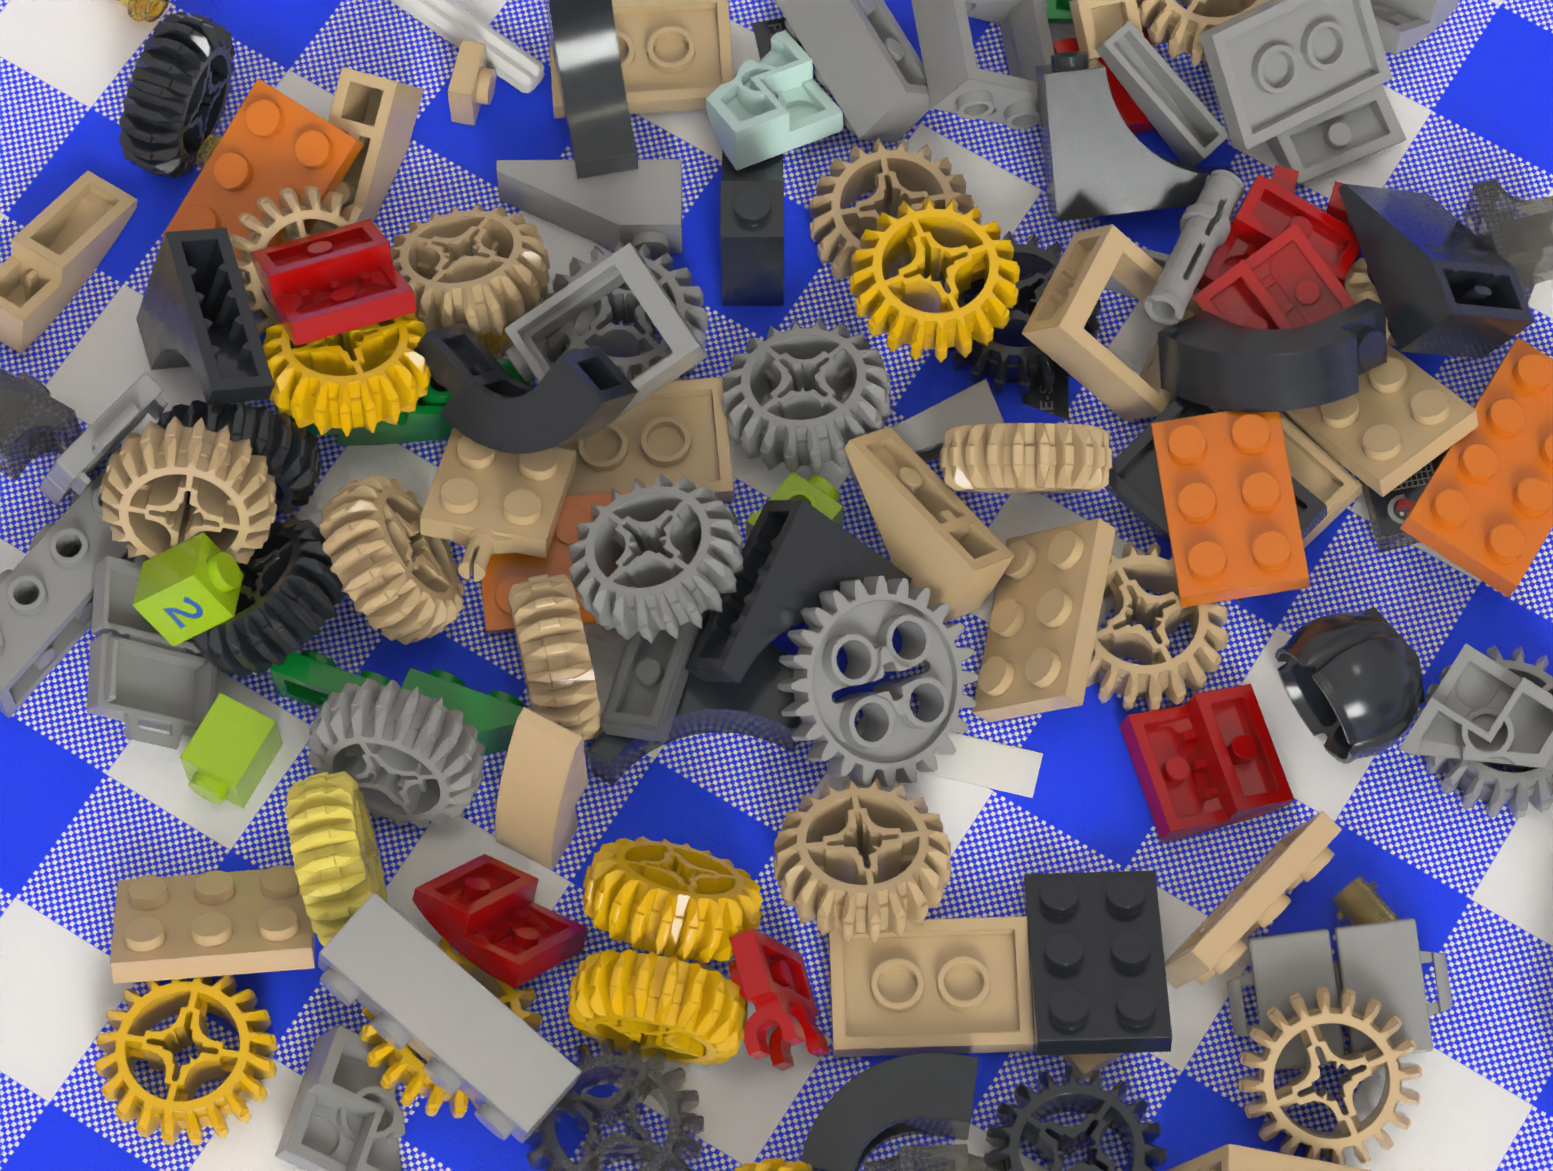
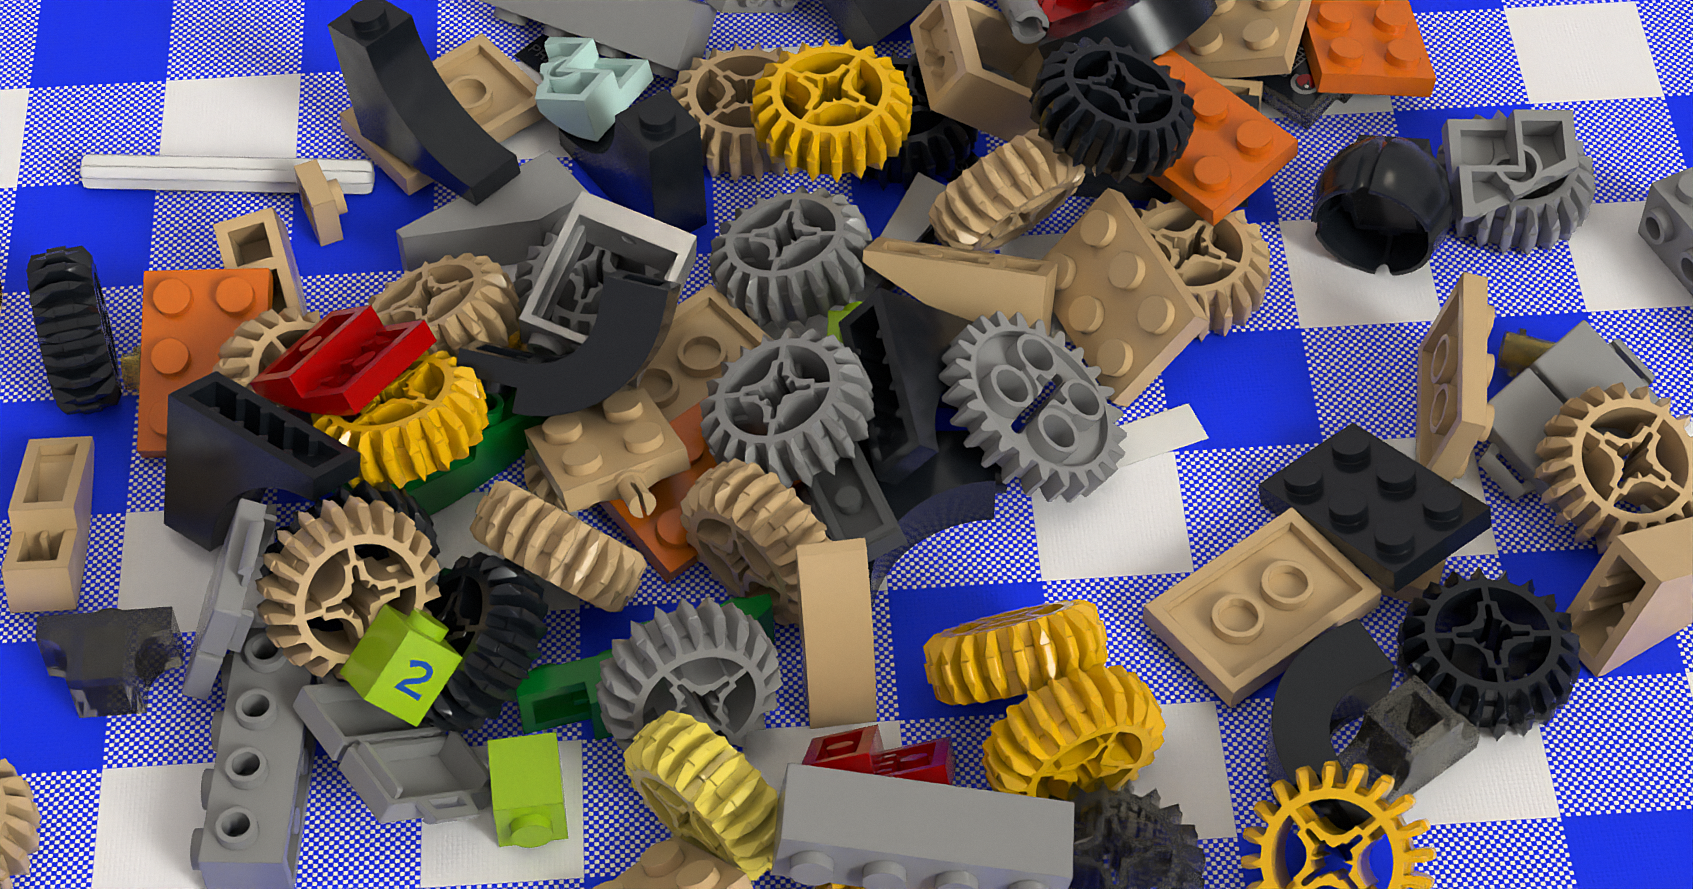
camera: 35 degrees left, 15 degrees down
(780, 989) = (1168, 677): red plate -> none
(827, 876) = (1133, 541): tan gear -> none
(1110, 448) = (1112, 109): none -> black gear
(1206, 762) = (1317, 333): red slope -> none

